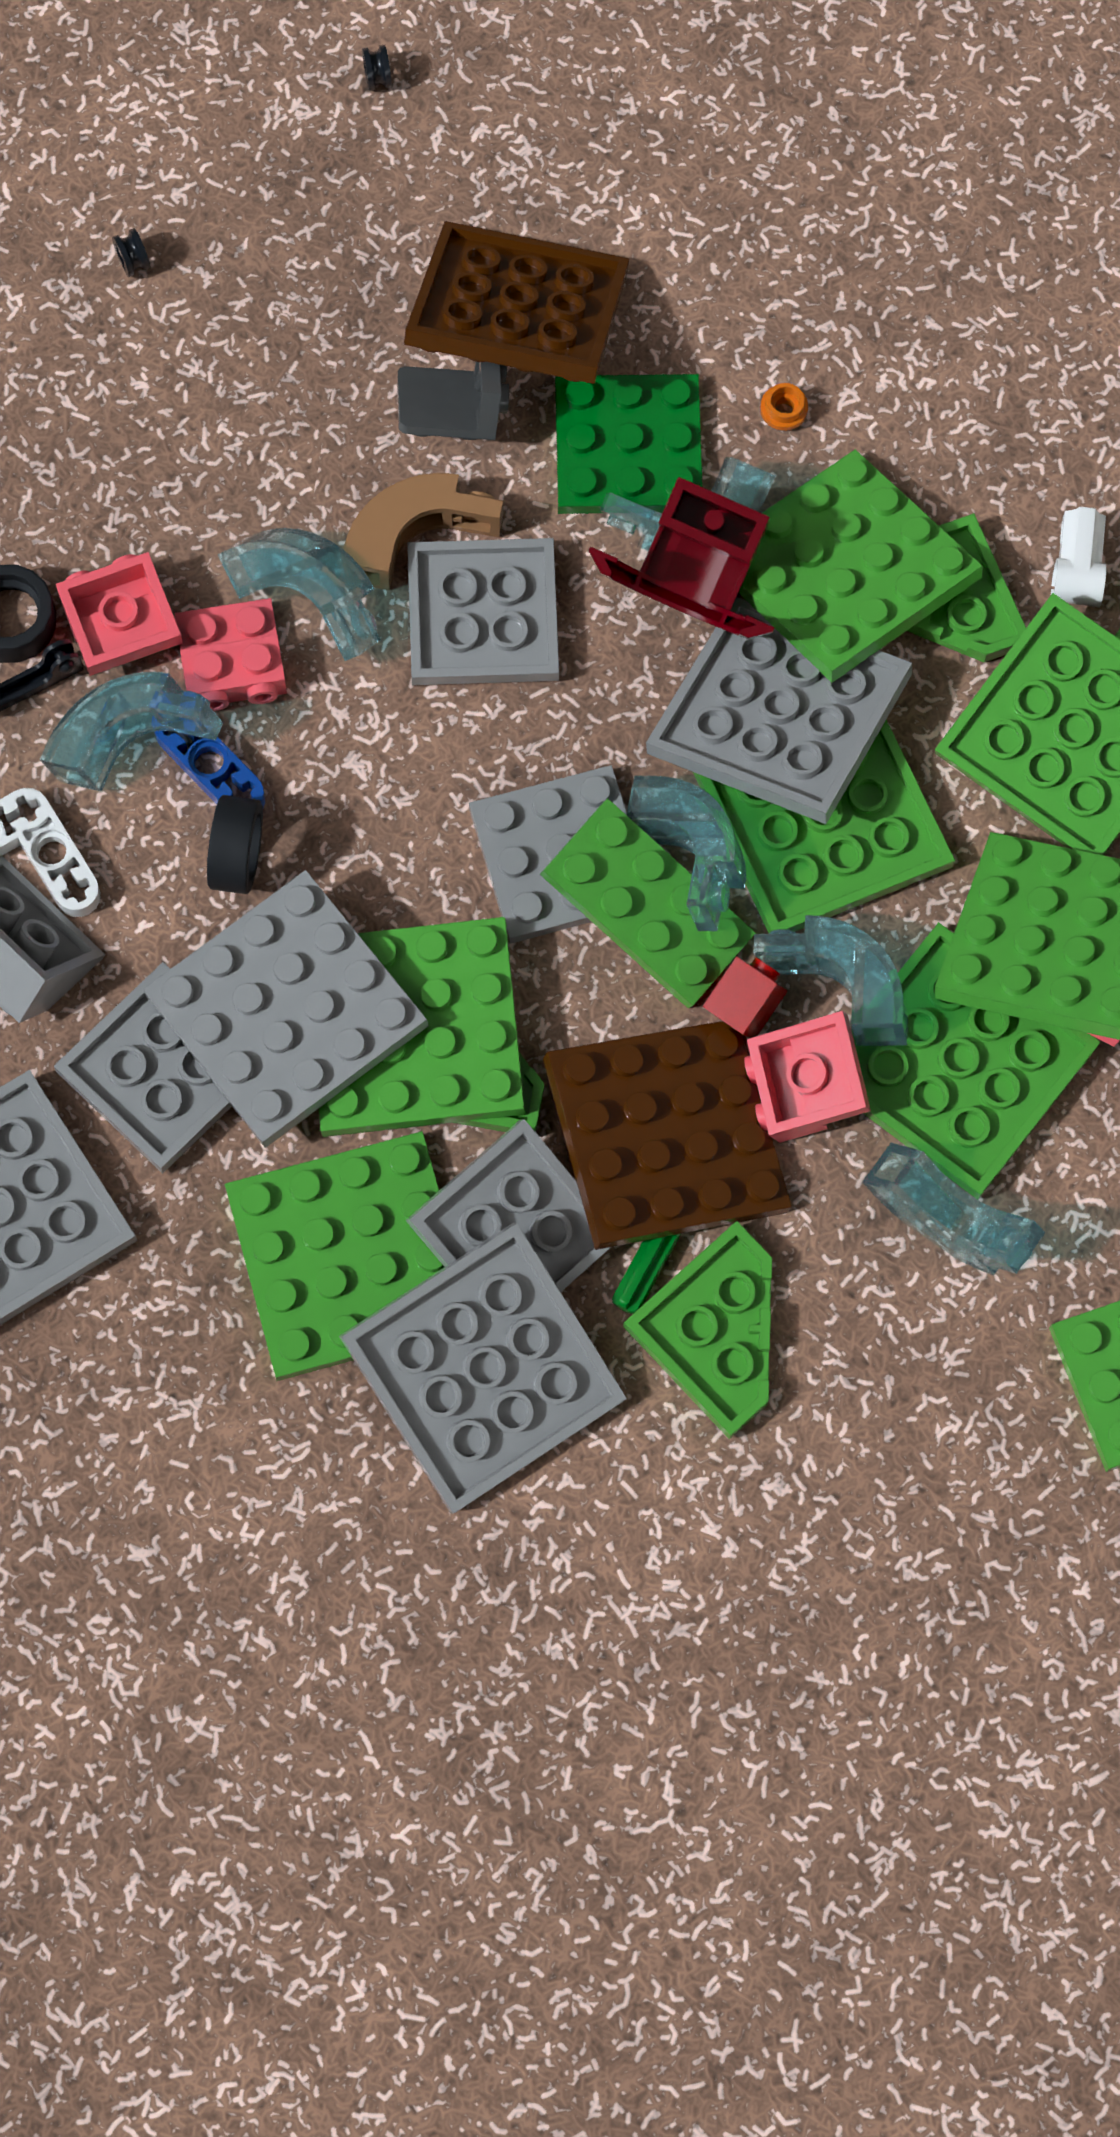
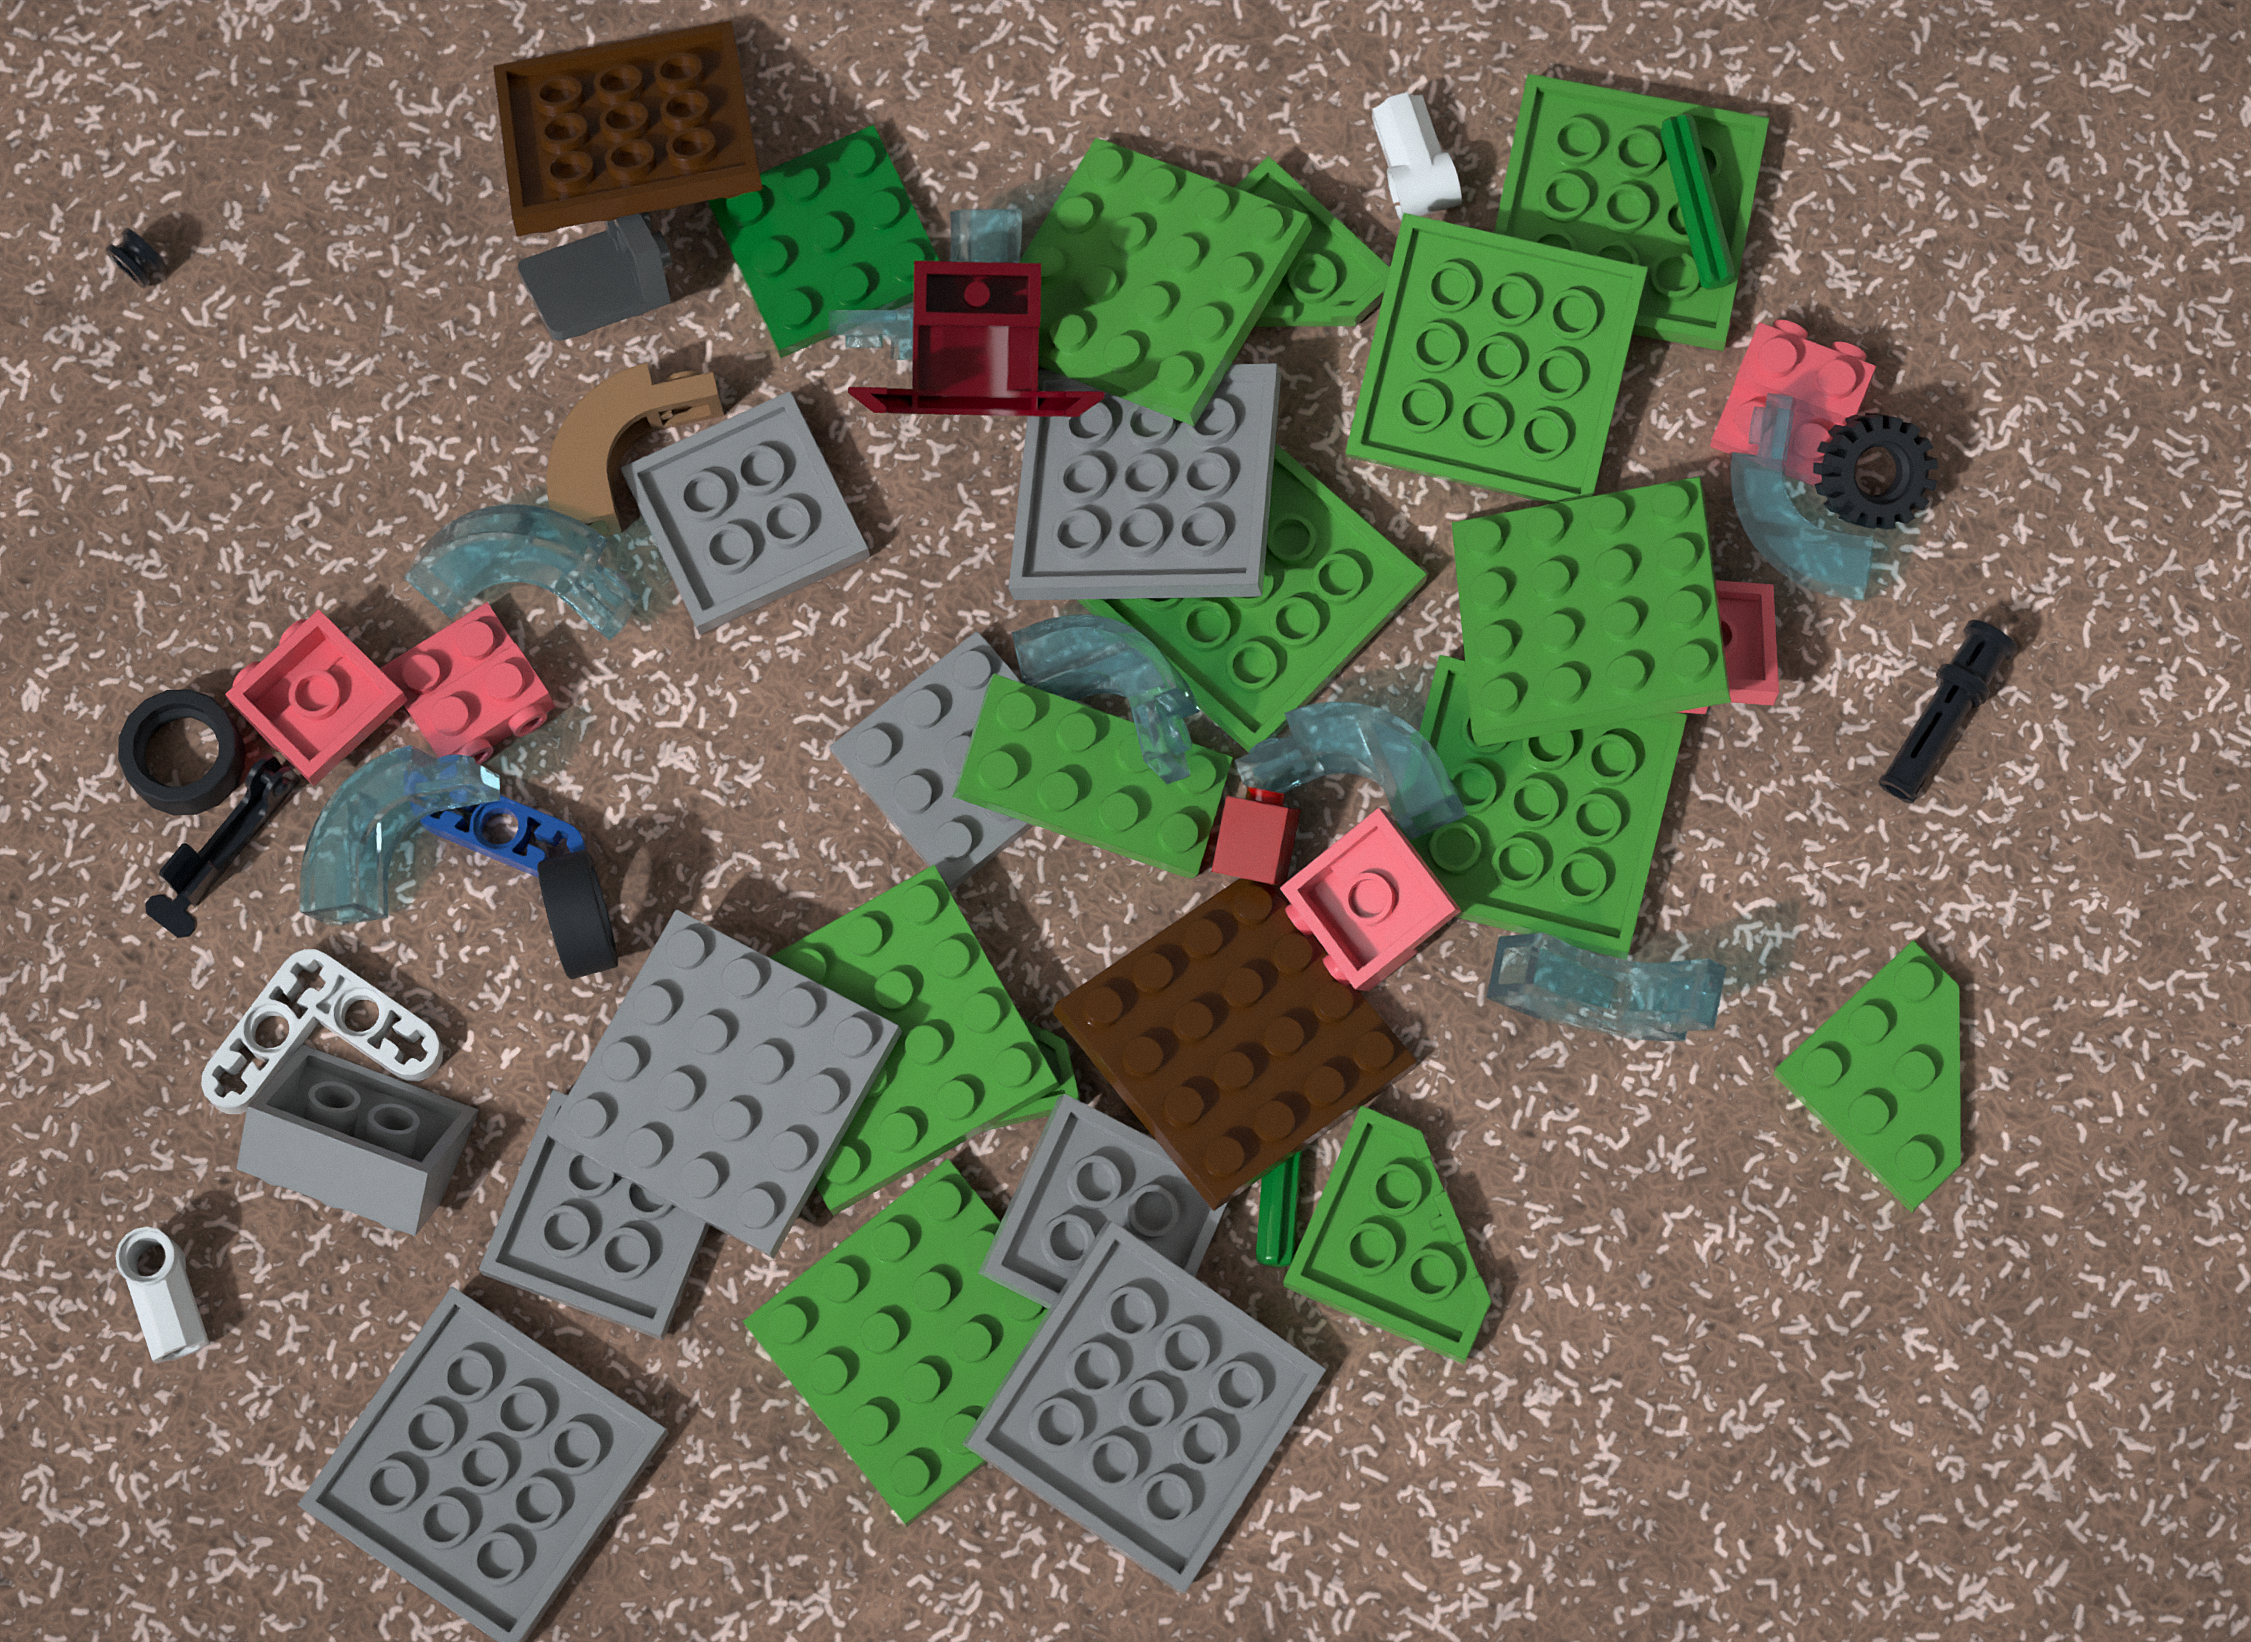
camera: 15 degrees left, 0 degrees up
(784, 394) = (986, 105): orange plate -> none

